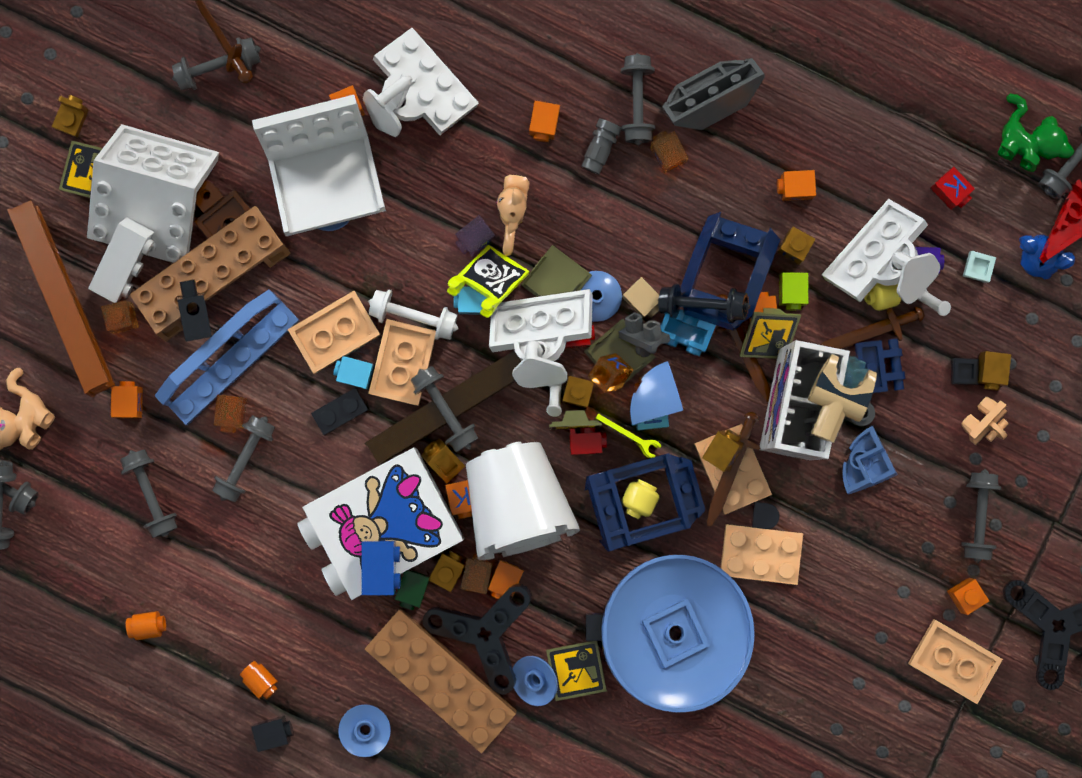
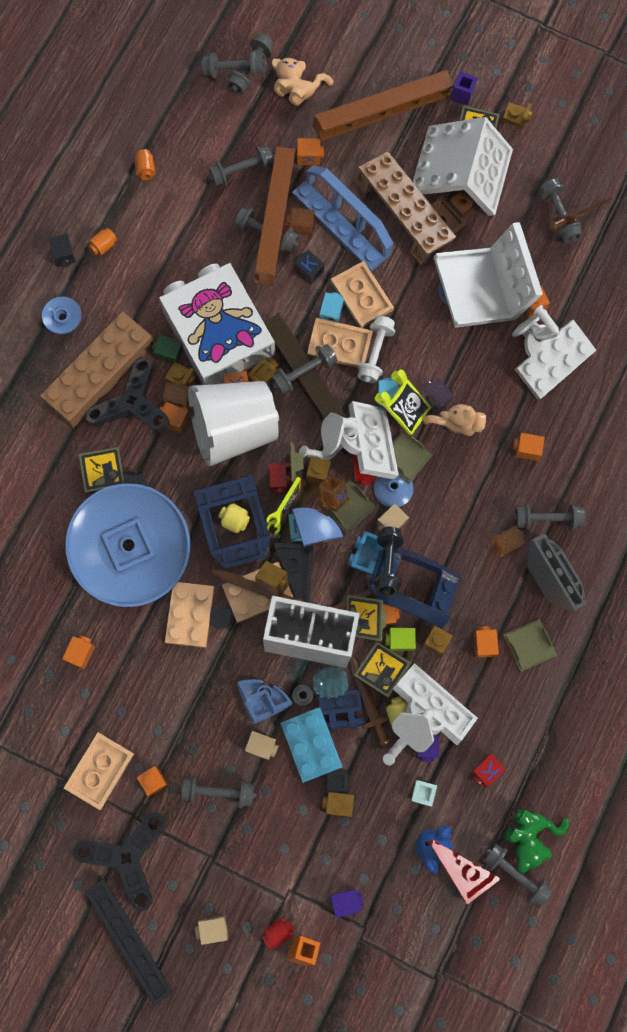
camera: 85 degrees right, 10 degrees down
(34, 187) = (464, 88): none -> dark purple brick
(119, 317) = (370, 145): clear orange brick -> none
(122, 260) = (412, 144): white brick -> none
(194, 324) = (368, 190): black torso -> none
(227, 447) = (274, 216): none -> dark orange tile
(295, 403) = (308, 266): none -> black brick
(339, 411) = (302, 299): black plate -> none
(379, 567) = (182, 314): blue brick -> none
(529, 687) = (94, 438): medium blue dish -> none
(600, 146) = (511, 489): dark grey axle -> none
(644, 336) = (363, 519): dark grey hips -> none
(705, 418) = (298, 564): none -> black wing
(796, 130) = (530, 645): none -> olive piece
(810, 691) = (79, 651): none -> orange brick
(831, 314) = (382, 669): none -> piece
(838, 400) = (309, 644): tan connector -> none
(923, 402) = (311, 745): none -> medium azure plate
(925, 463) = (261, 746): none -> tan brick
(994, 412) = (293, 800): light nougat hips -> none

